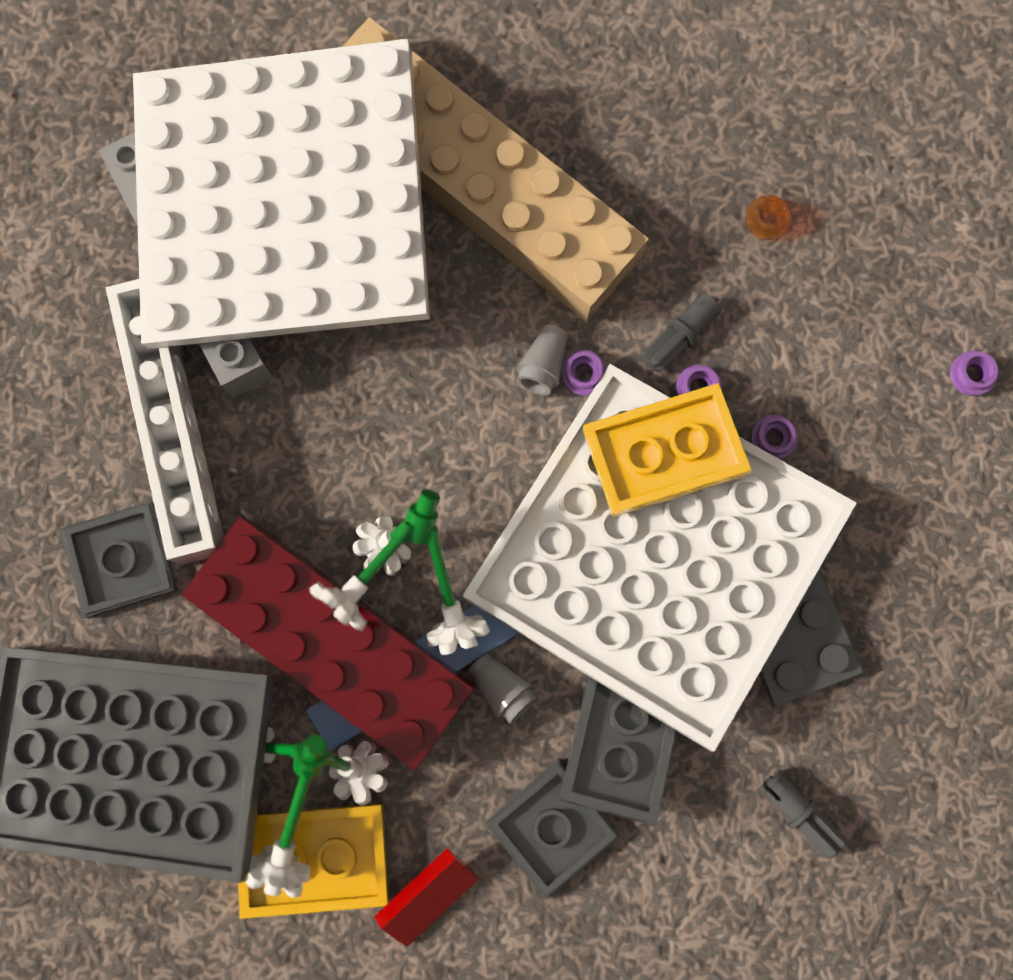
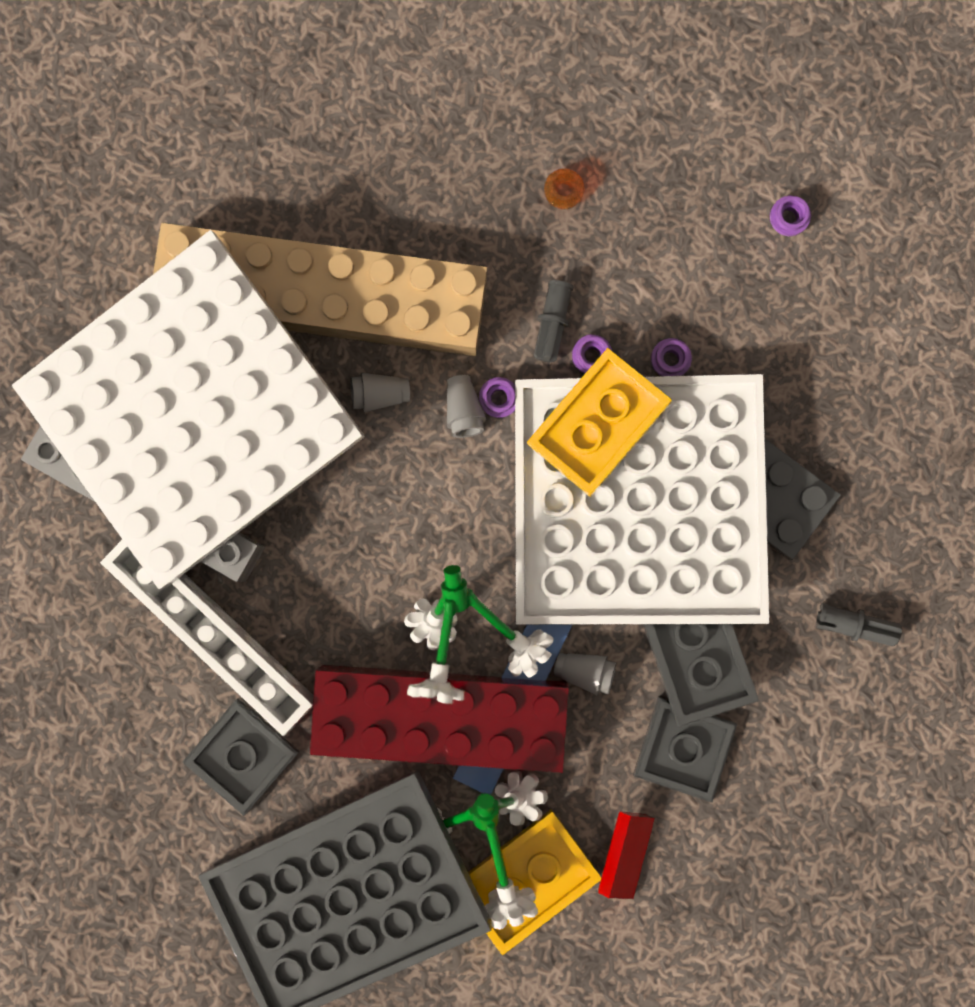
camera: 30 degrees left, 5 degrees up
(472, 296) = (378, 391): none -> light grey cone

